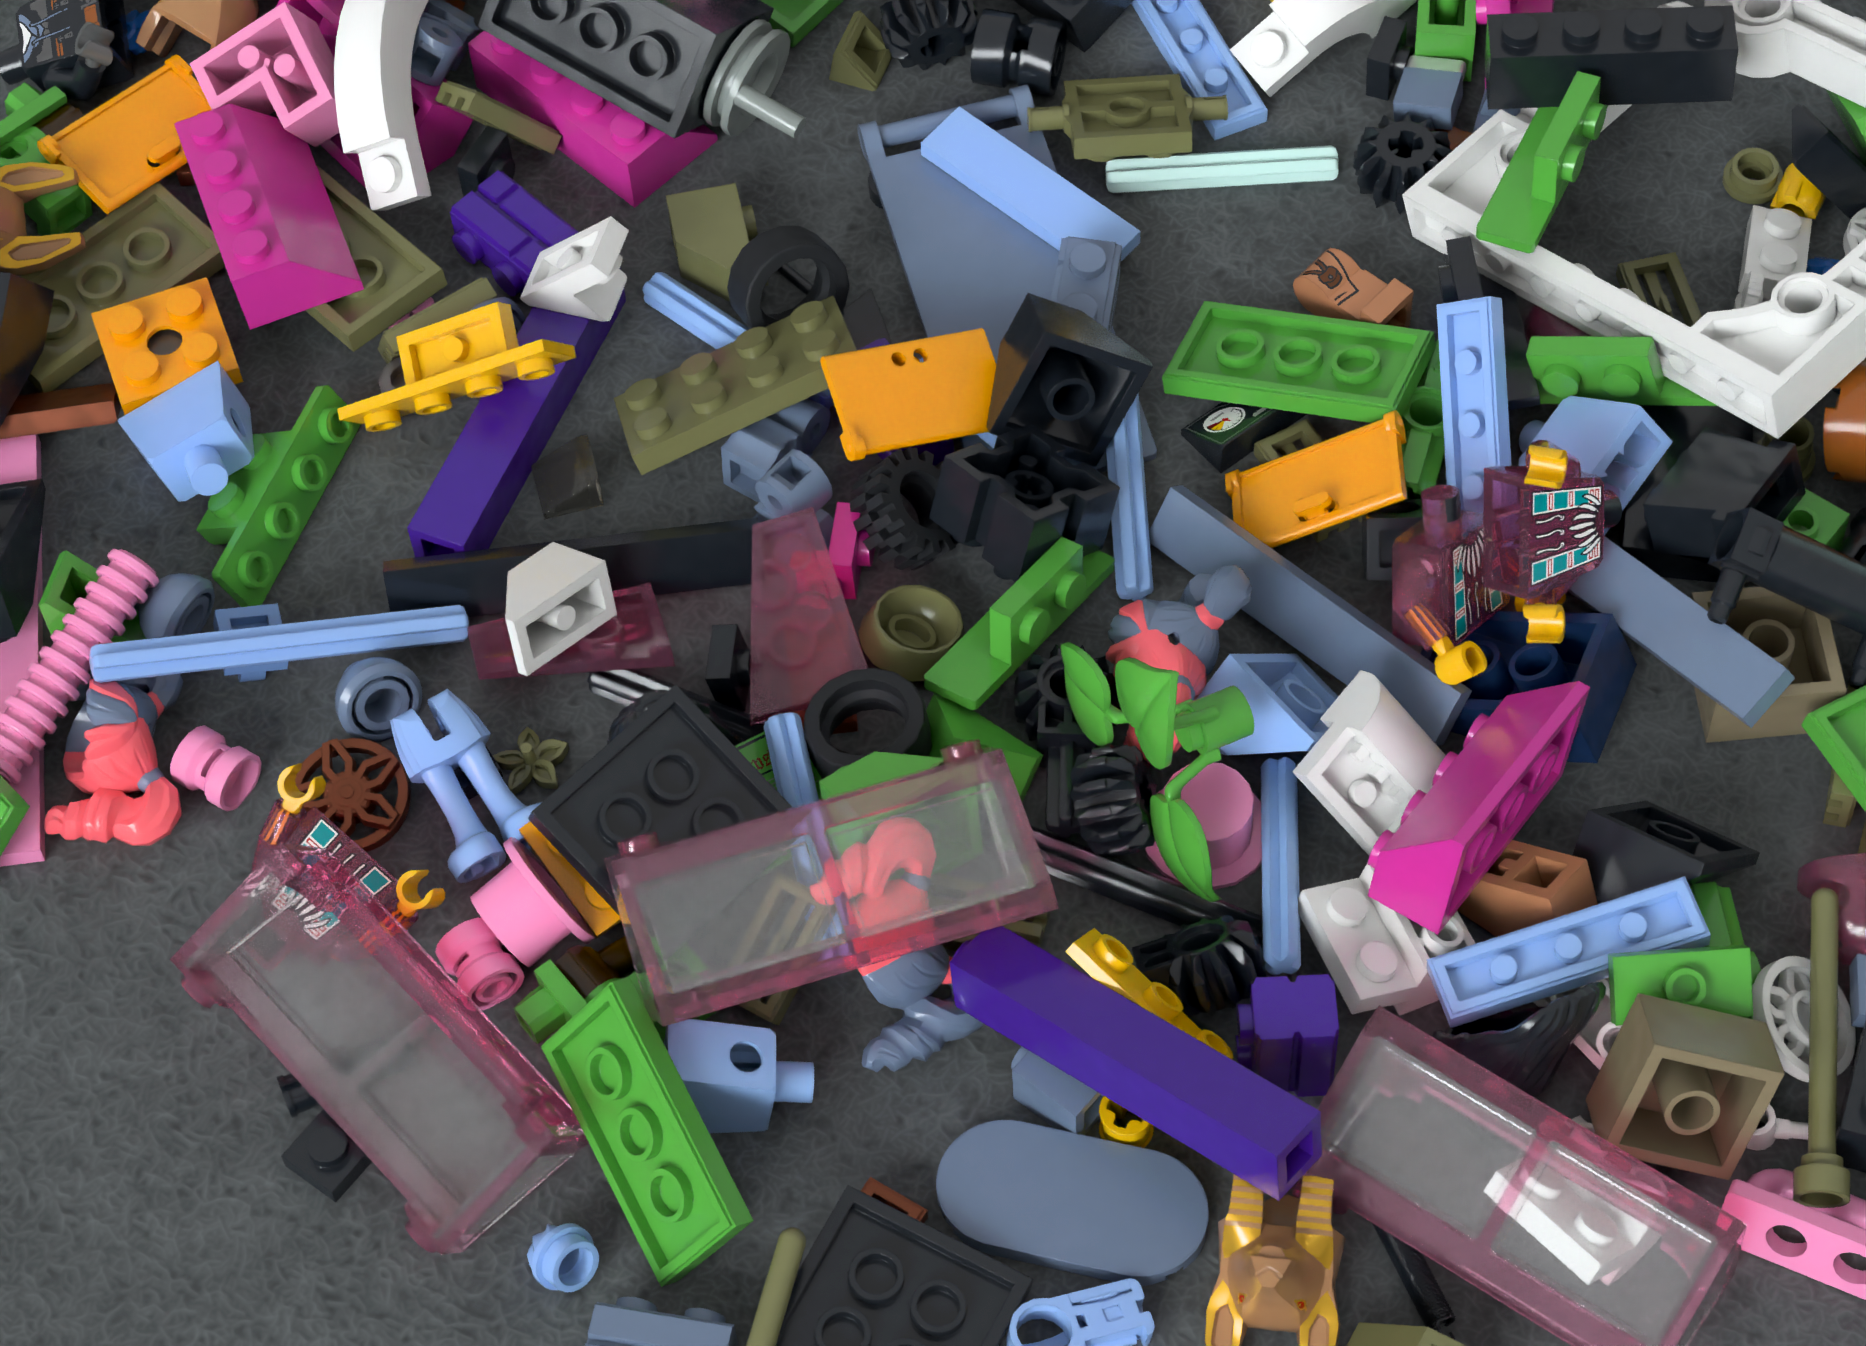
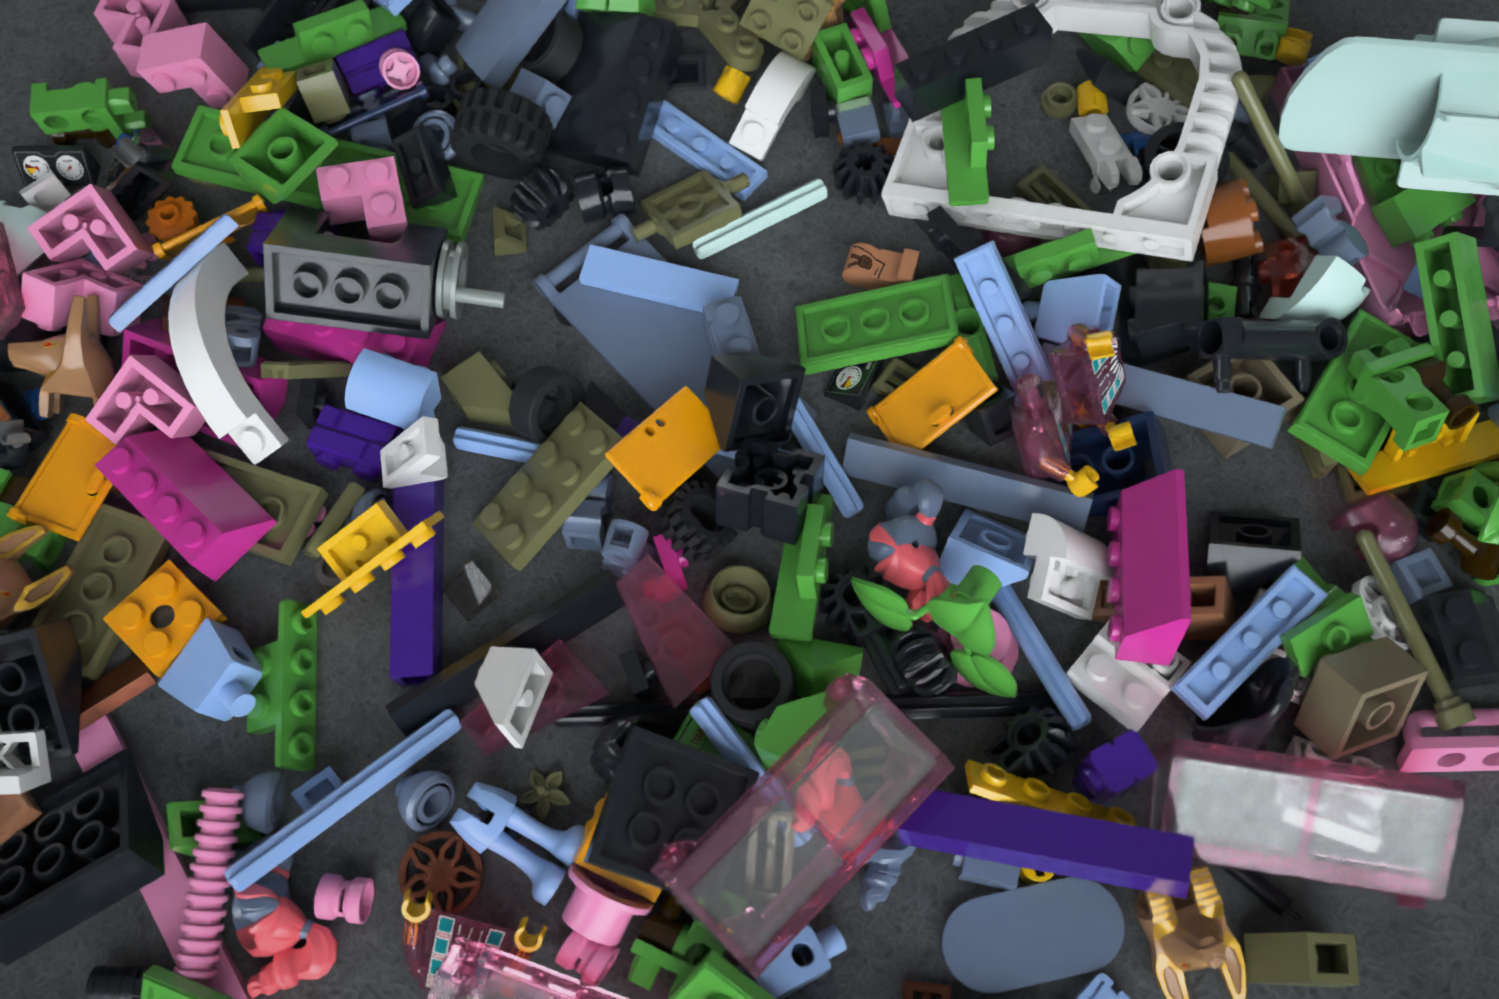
camera: 25 degrees left, 10 degrees up
(590, 177) = (391, 389): none -> light blue brick

